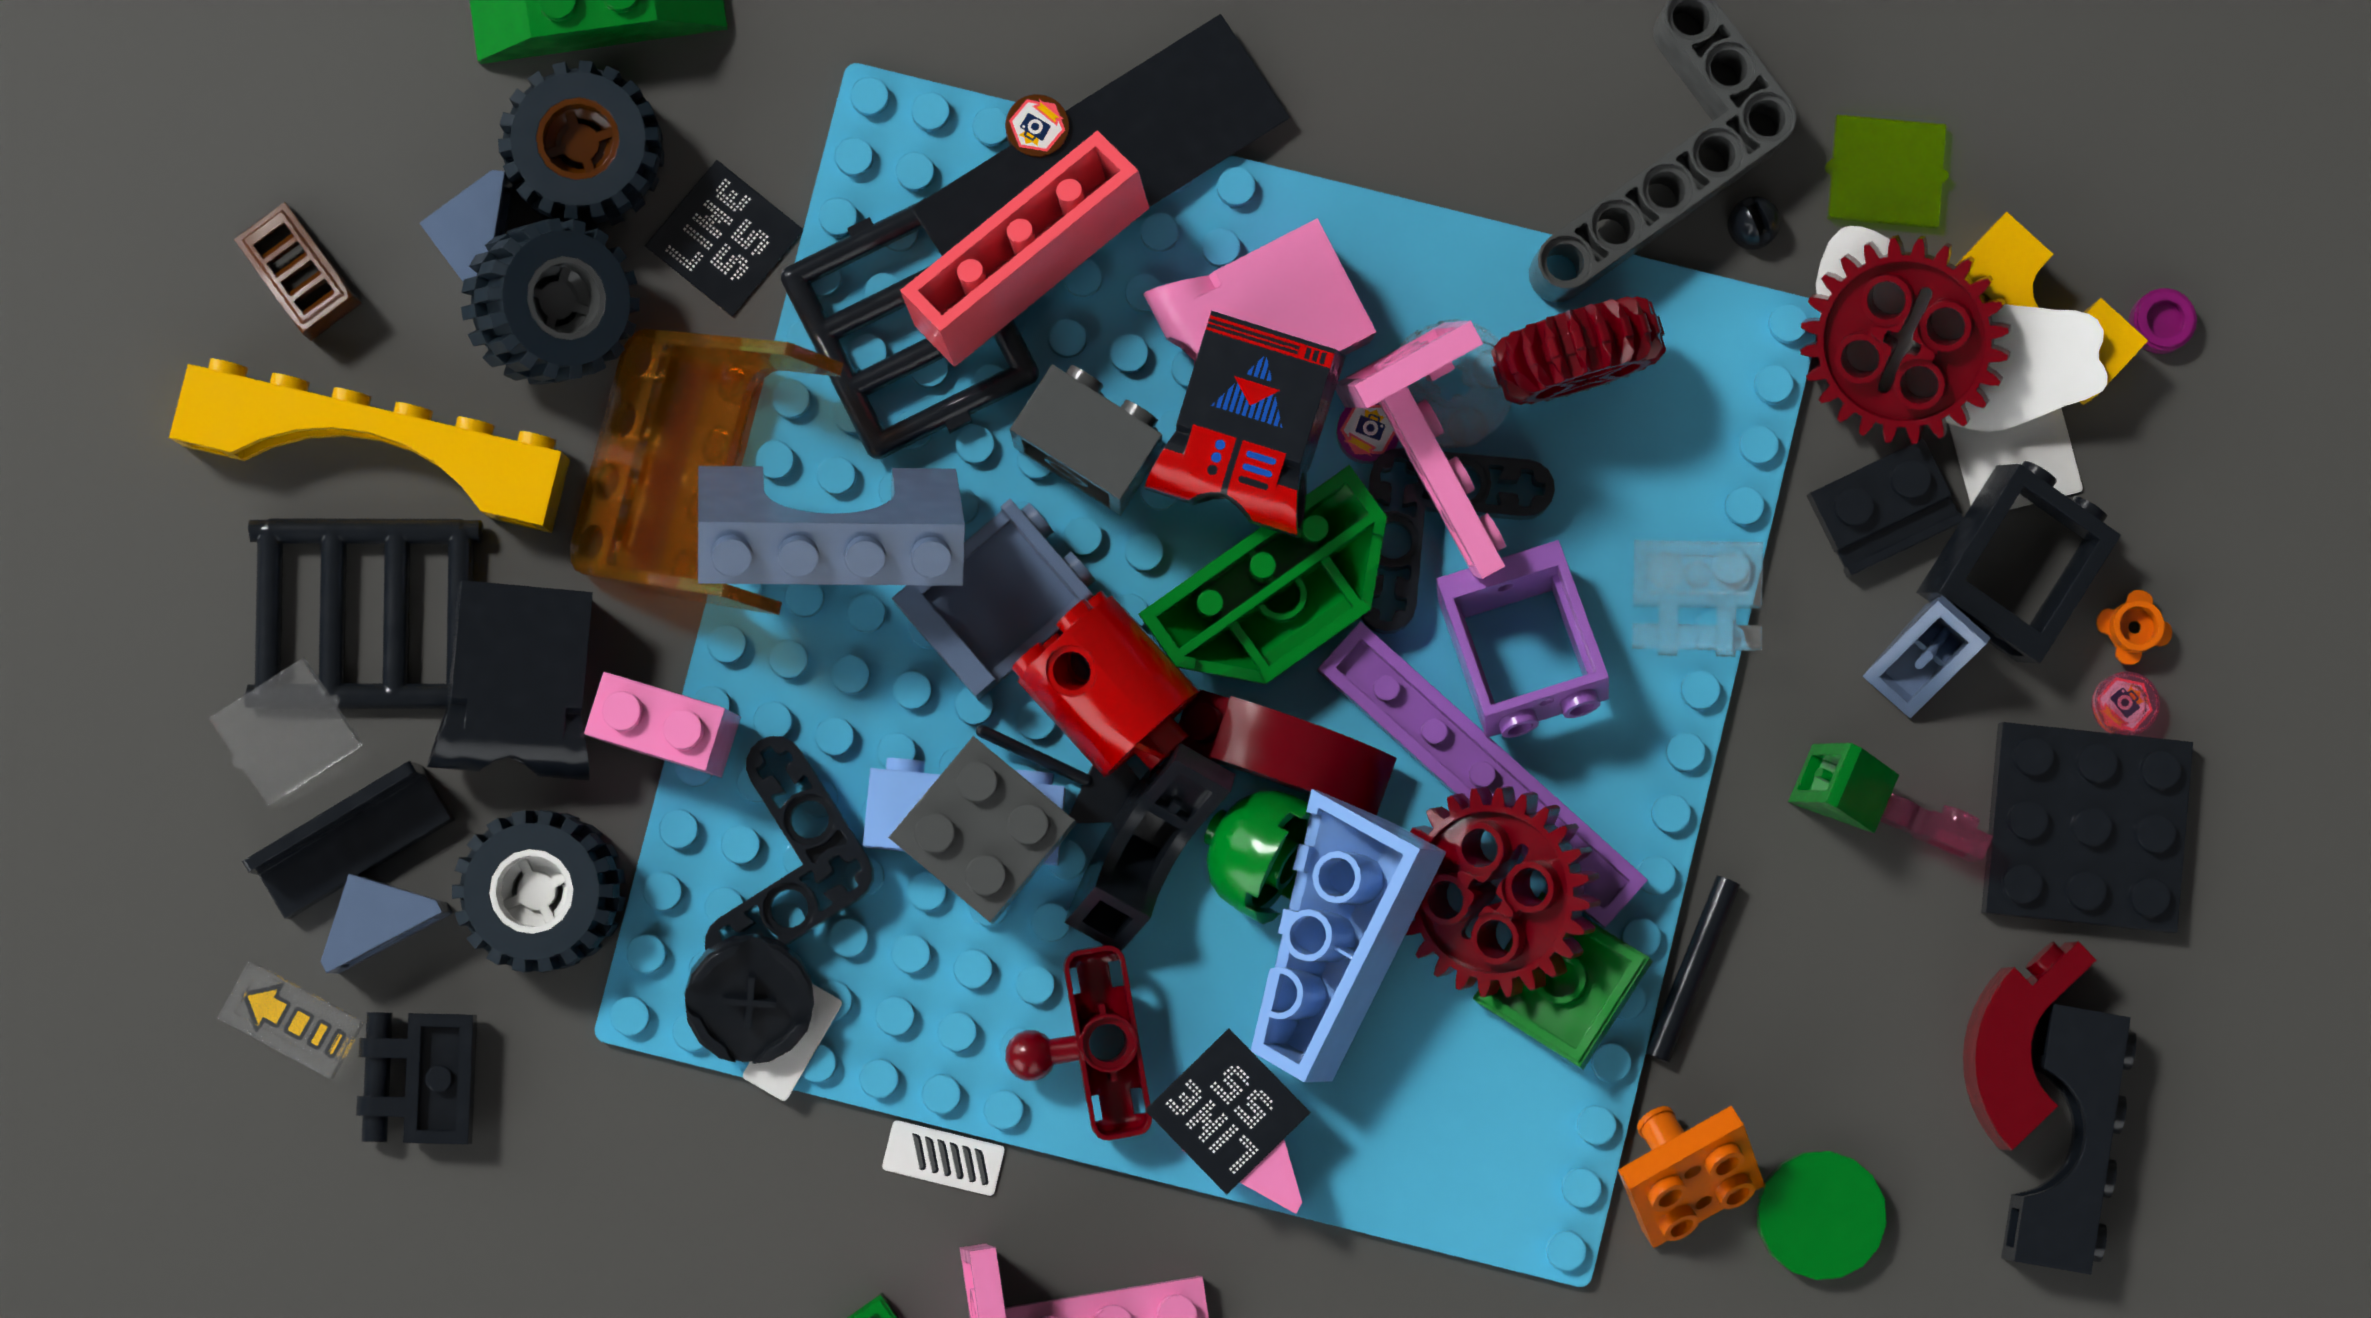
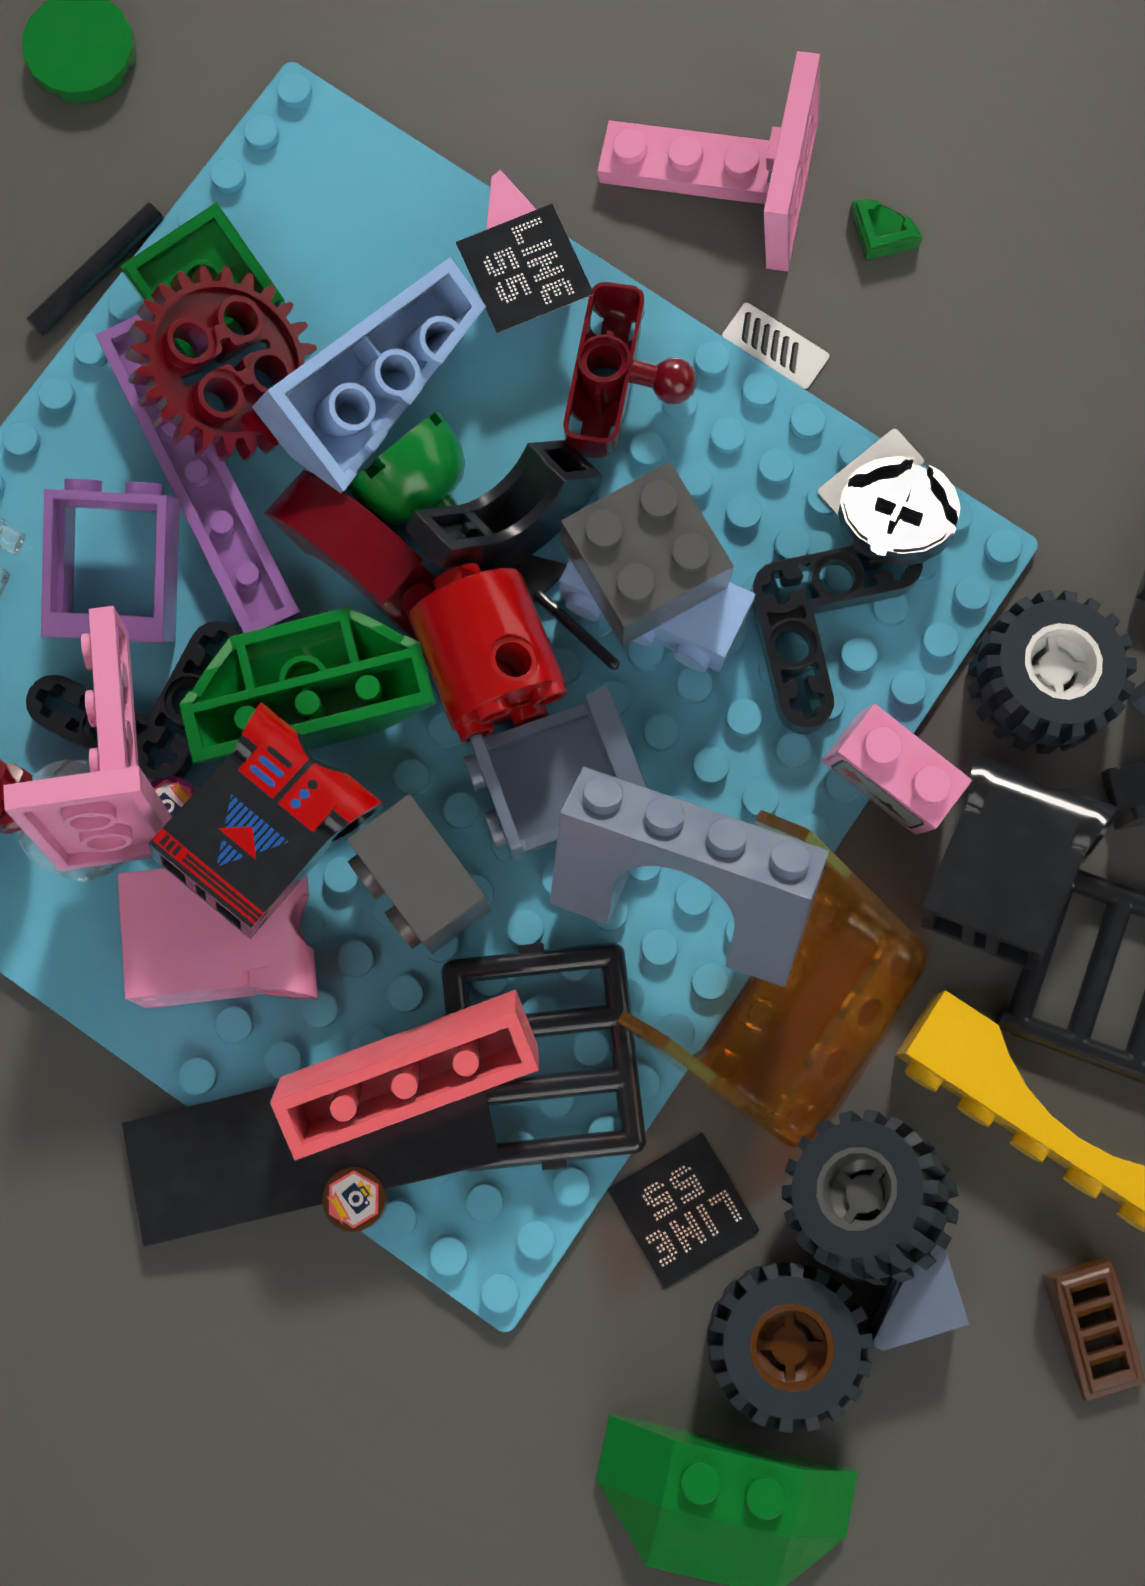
camera: 155 degrees left, 5 degrees down
(1689, 1172) = (166, 101): orange plate -> none

